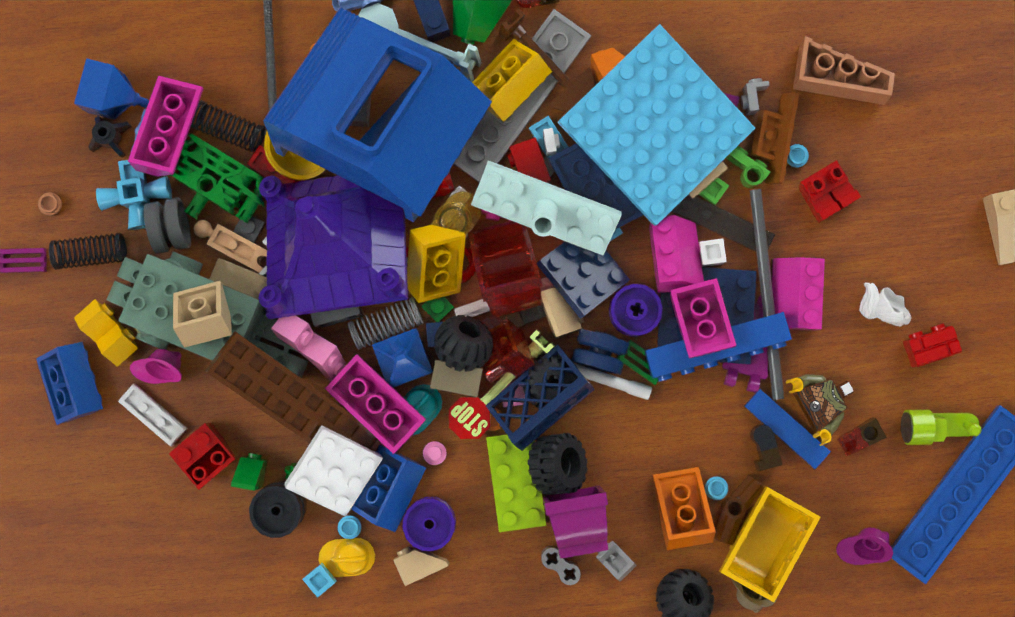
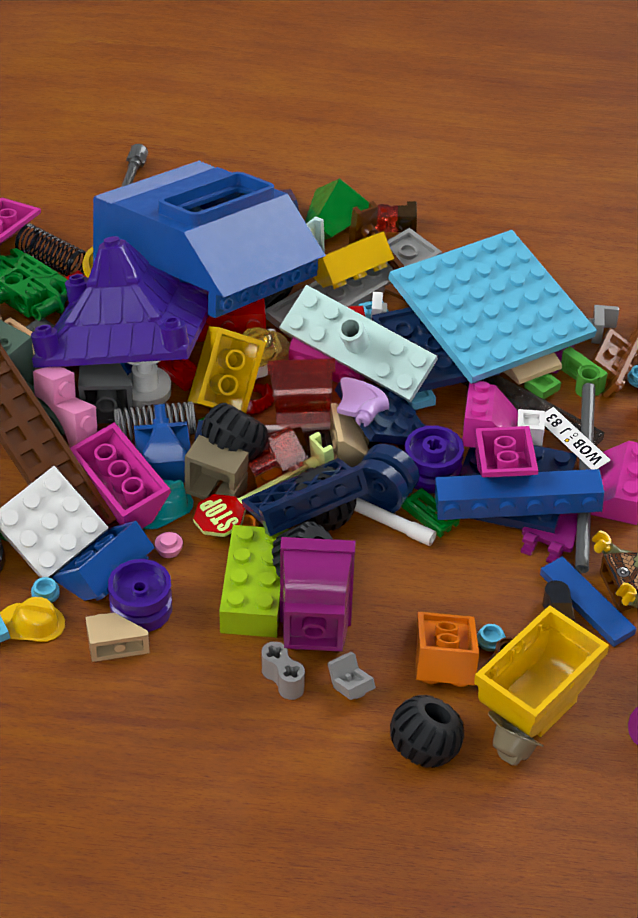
camera: 10 degrees right, 40 degrees down
(566, 285) = (361, 400): none -> lavender arm
(751, 258) = (574, 439): none -> white sticker

